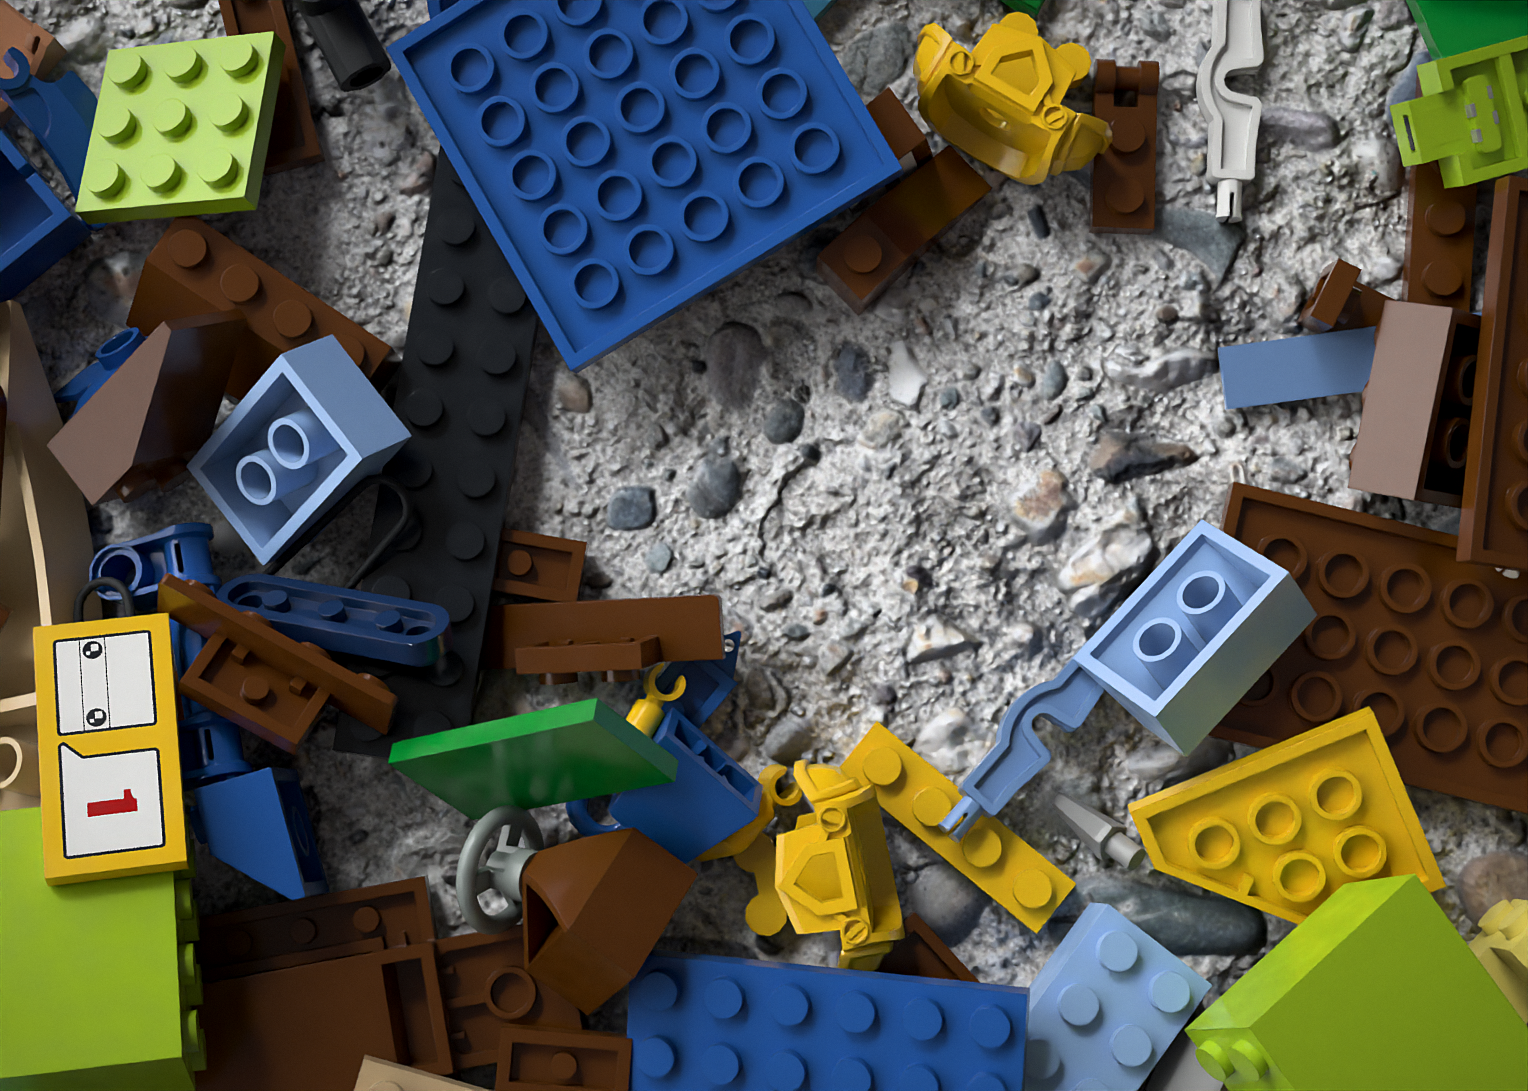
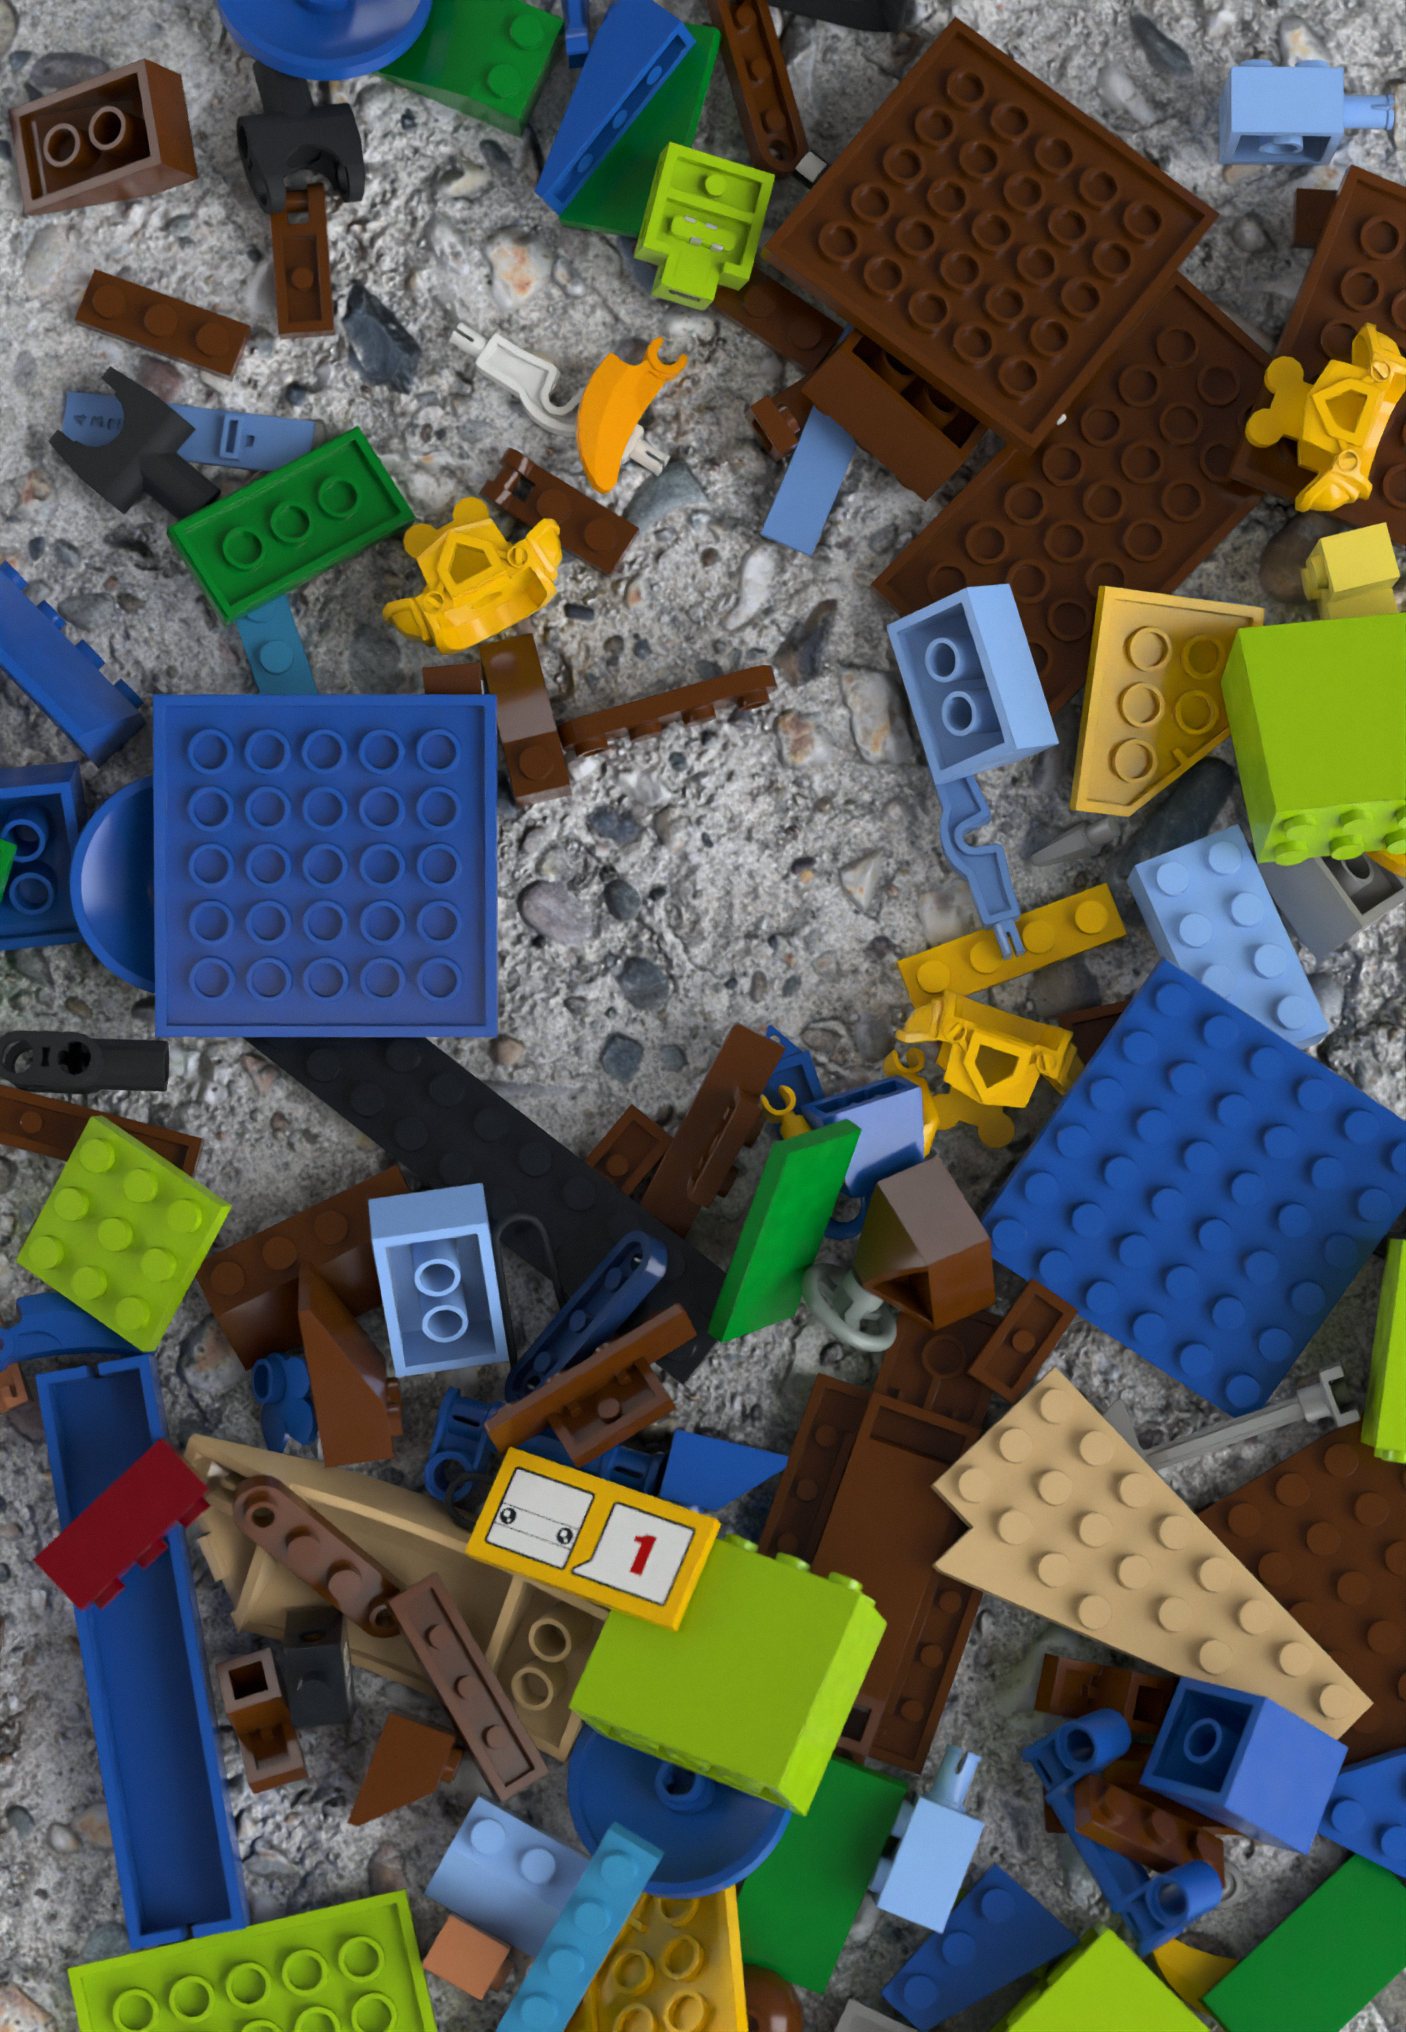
camera: 60 degrees left, 0 degrees up
(1011, 374) = (644, 717): none -> reddish brown plate
(1257, 134) = (613, 407): none -> light orange piece

